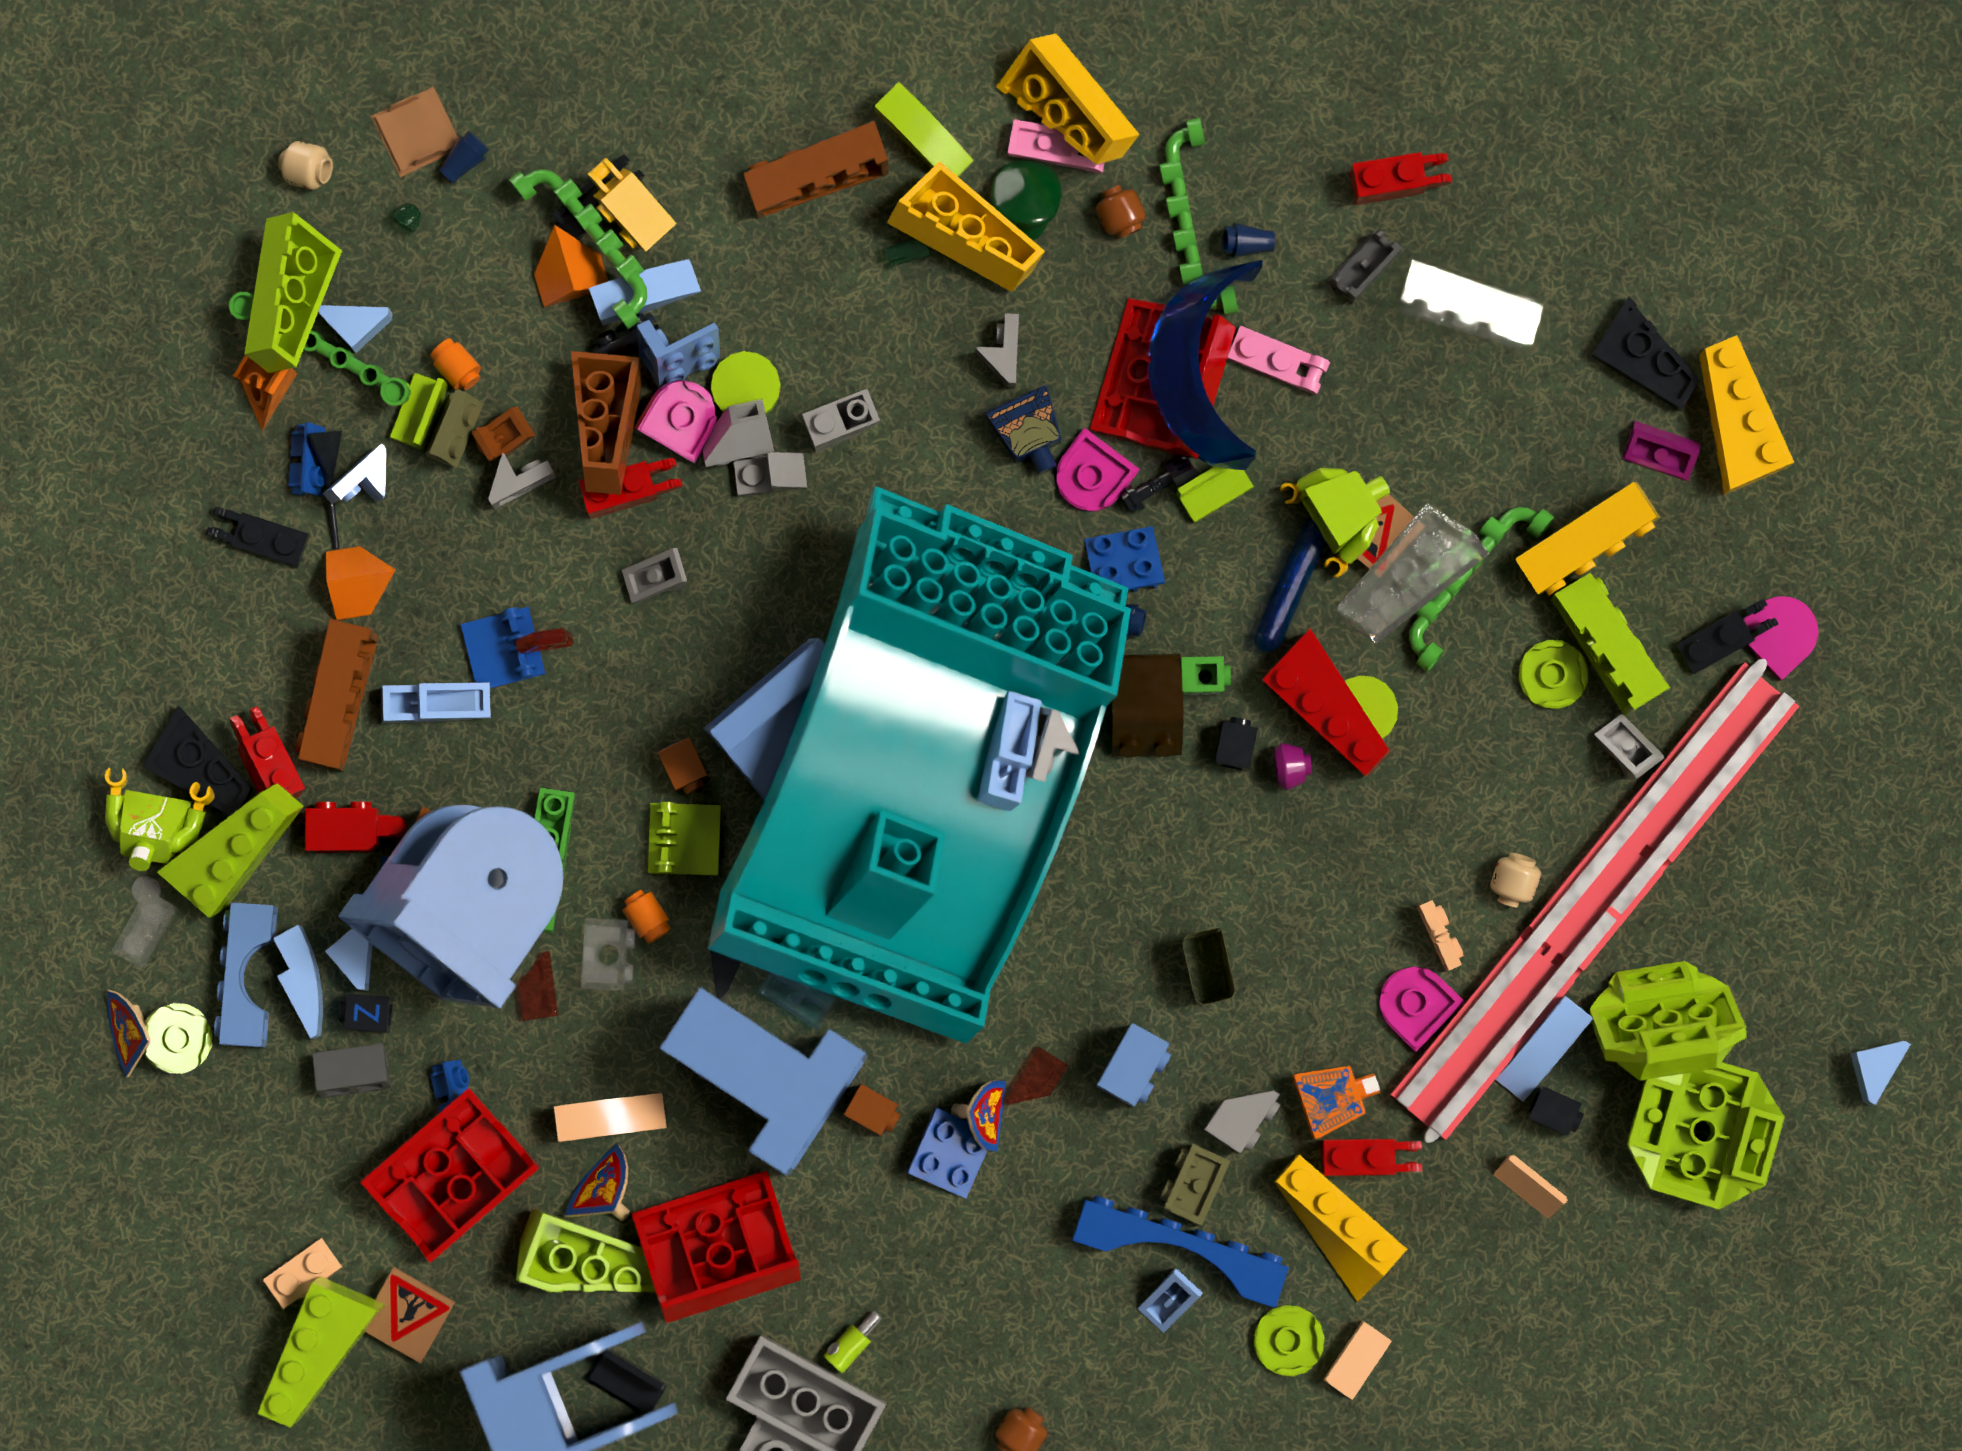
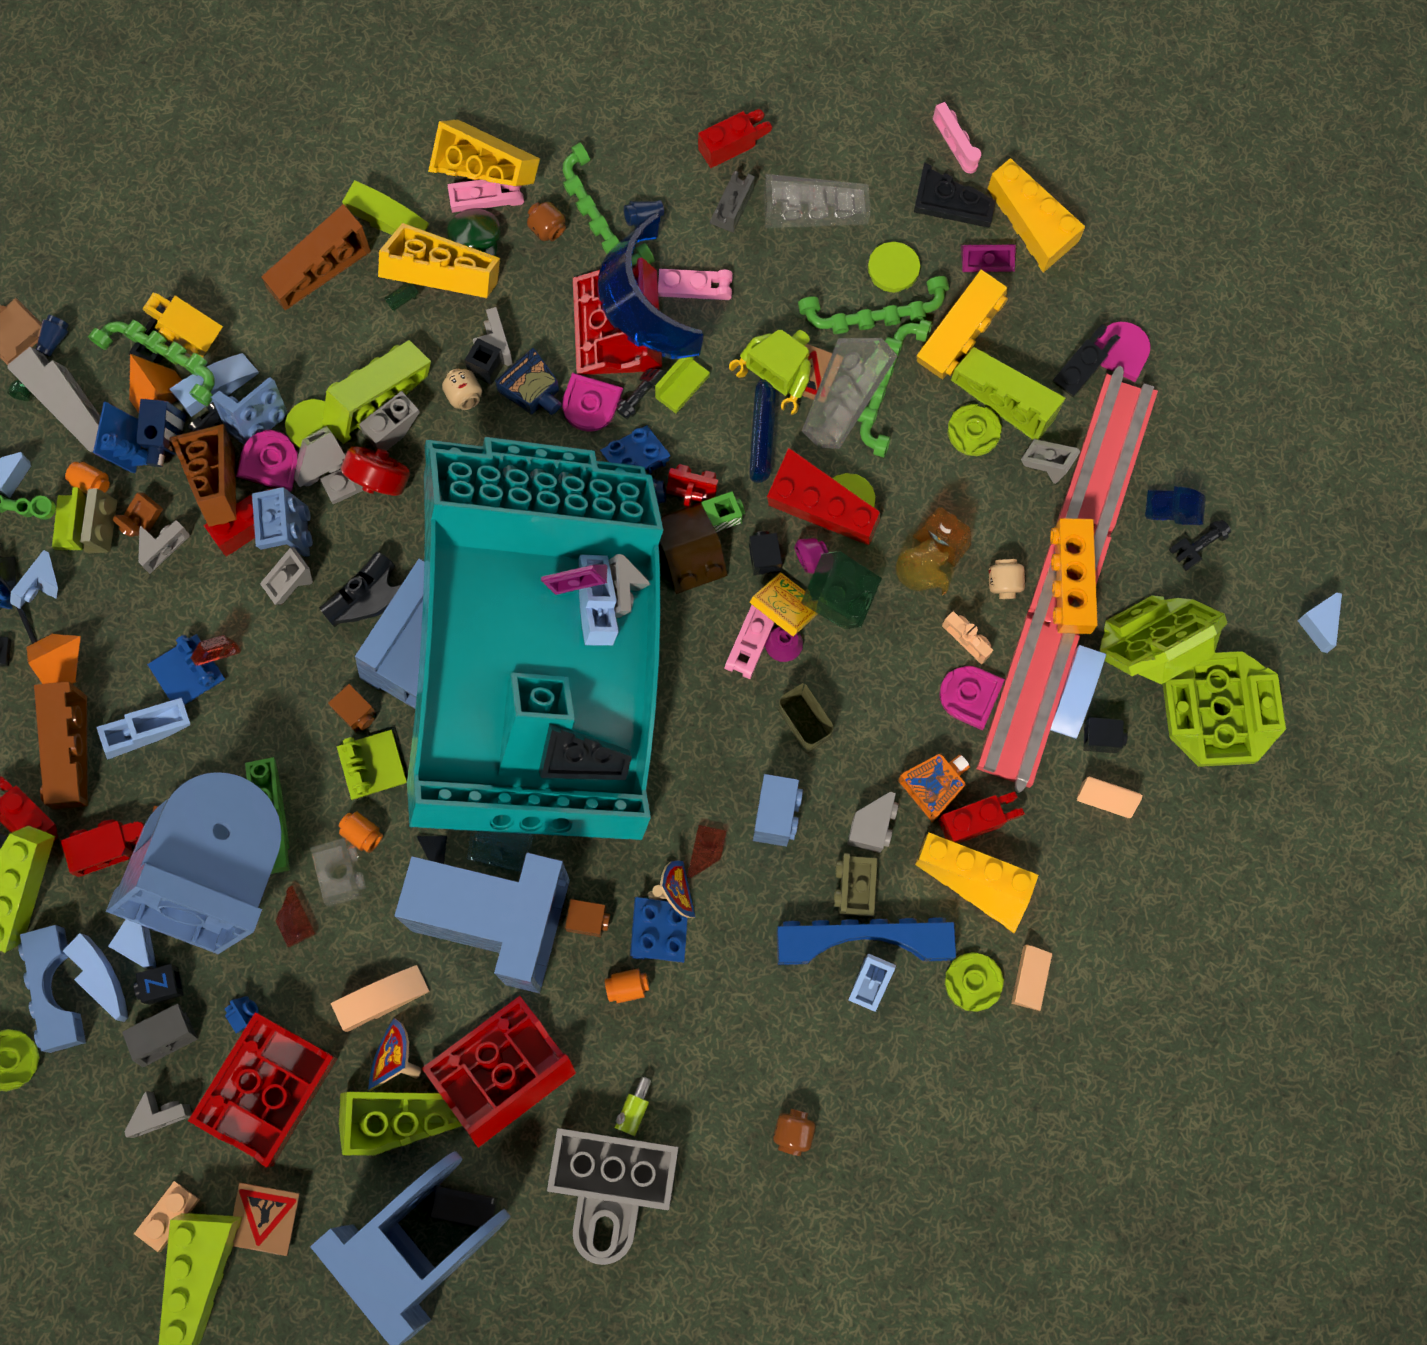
camera: 20 degrees left, 10 degrees down
(313, 1159) = (148, 1118): none -> light grey slope
(455, 248) = (58, 393): none -> light grey wedge
(511, 330) = (118, 439): none -> blue hinge
(562, 322) = (156, 425): none -> dark blue torso
(671, 508) = (281, 520): none -> medium blue bracket
(743, 630) = (364, 594): none -> black pin
(803, 479) = (375, 471): none -> red wheel
(835, 370) = (372, 387): none -> lime wedge
(891, 1203) = (626, 986): none -> orange brick
(928, 932) = (582, 757): none -> black wing
(942, 405) = (462, 389): none -> tan head
(981, 380) = (484, 361): none -> black brick
(994, 723) = (576, 579): none -> magenta slope
(1178, 630) = (691, 486): none -> red hips
(1183, 843) = (750, 642): none -> bright pink plate
(1222, 874) = (785, 650): none -> magenta cone
(1238, 819) = (782, 604): none -> yellow tile
(1308, 827) = (841, 590): none -> clear green brick
(1414, 832) = (919, 567): none -> clear yellow hair
(1459, 800) = (948, 534): none -> clear orange torso
(1506, 488) = (865, 318): none -> bright green bar
(1536, 423) = (893, 267): none -> lime tile
(1621, 862) = (1080, 535): none -> light orange brick
(1685, 278) = (956, 138): none -> bright pink plate
(1760, 861) = (1181, 505): none -> clear blue brick
(1800, 910) = (1219, 530): none -> black hinge

